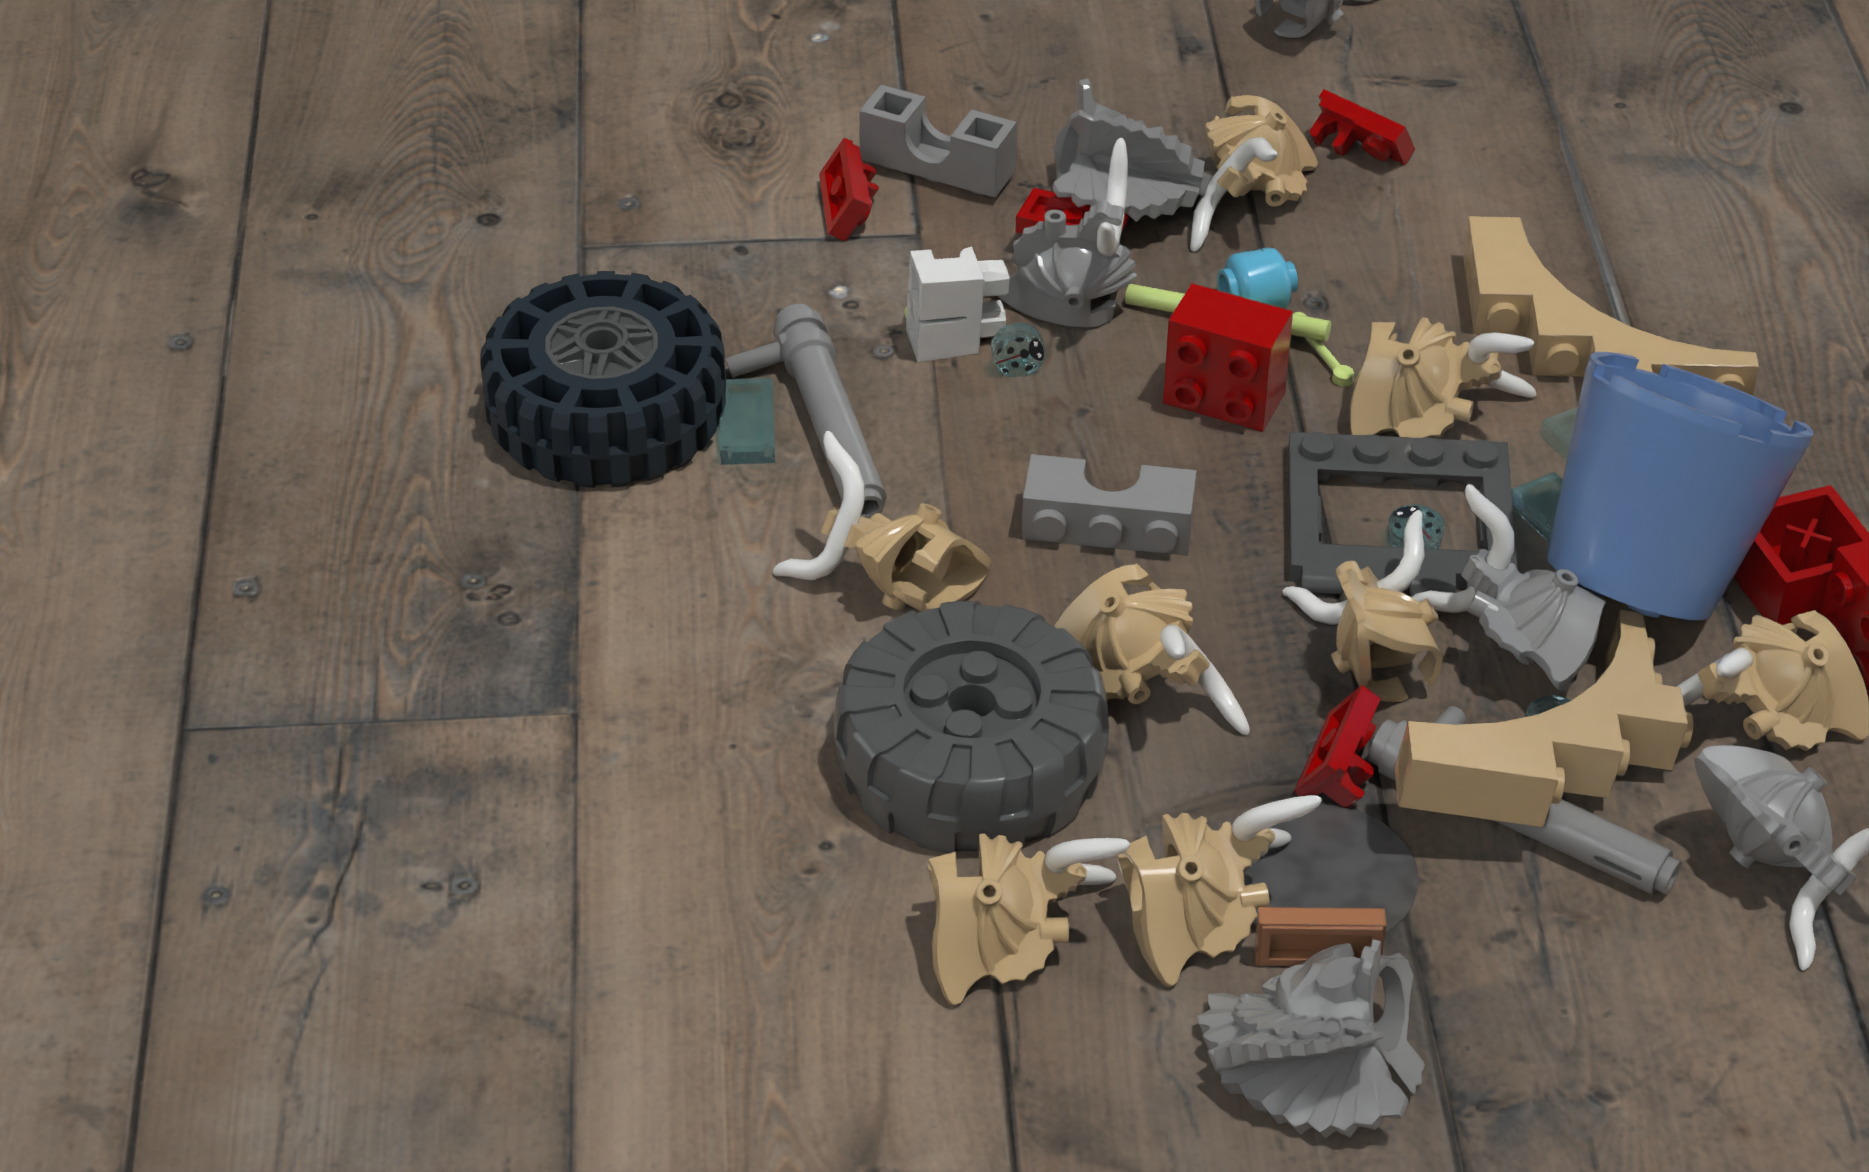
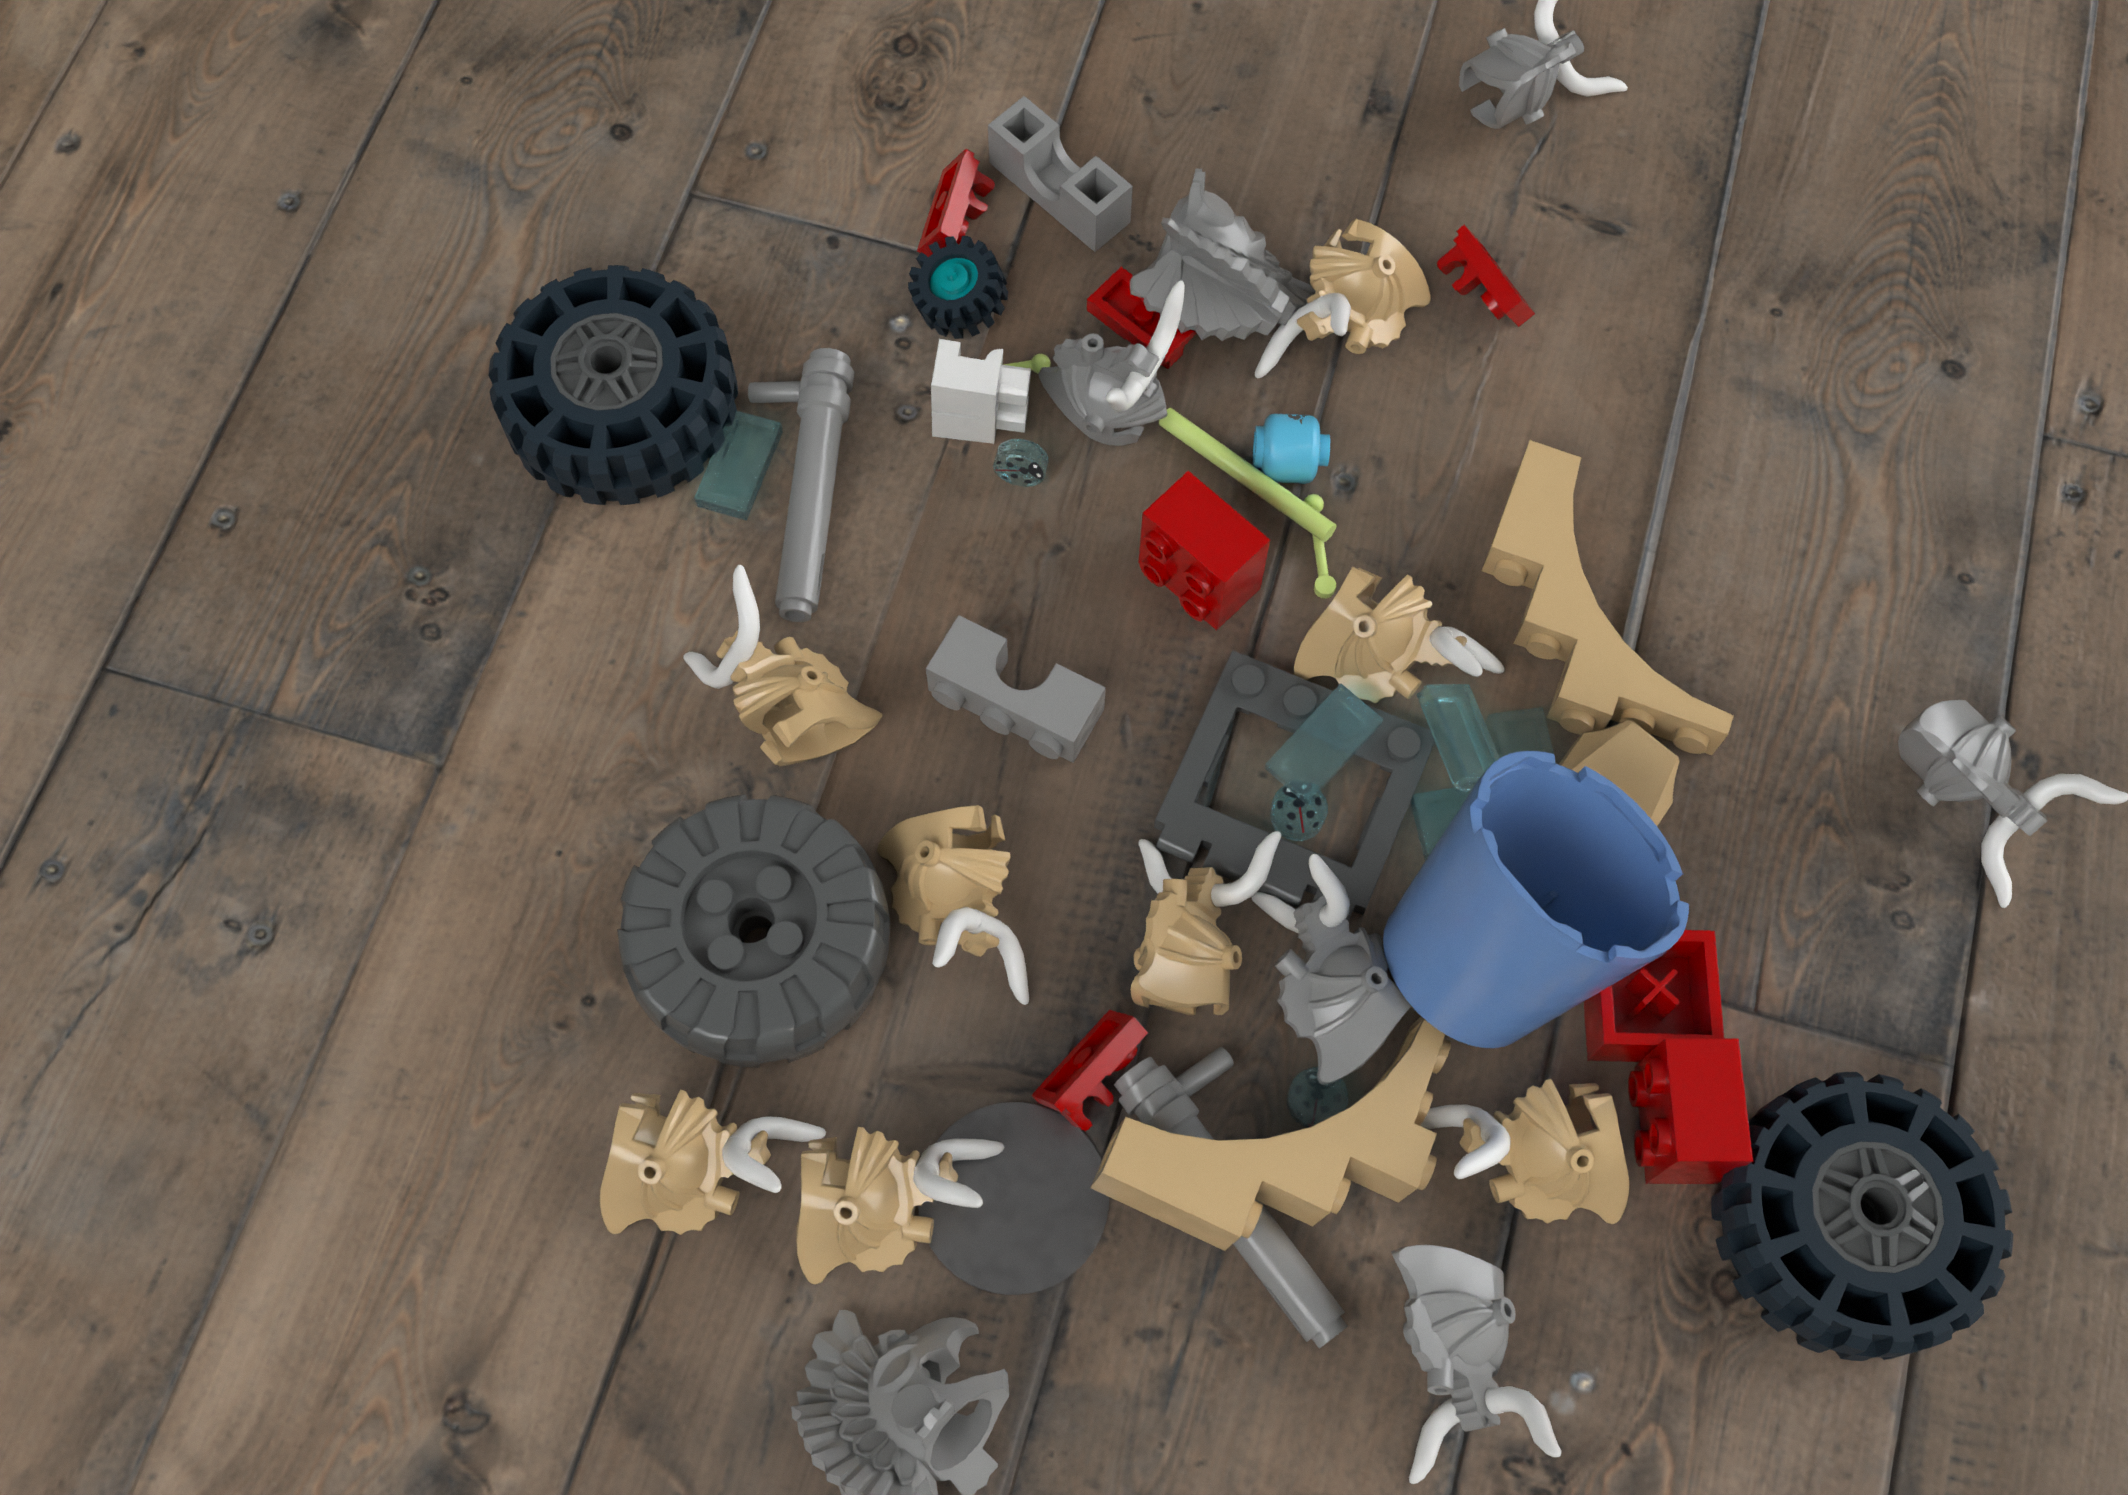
camera: 20 degrees right, 25 degrees up
(881, 239) = (958, 287): none -> black wheel
(1294, 934) = (963, 1292): nougat tile -> none
(1413, 464) = (1323, 744): none -> clear light blue tile
(1524, 435) = (1458, 732): none -> clear light blue tile

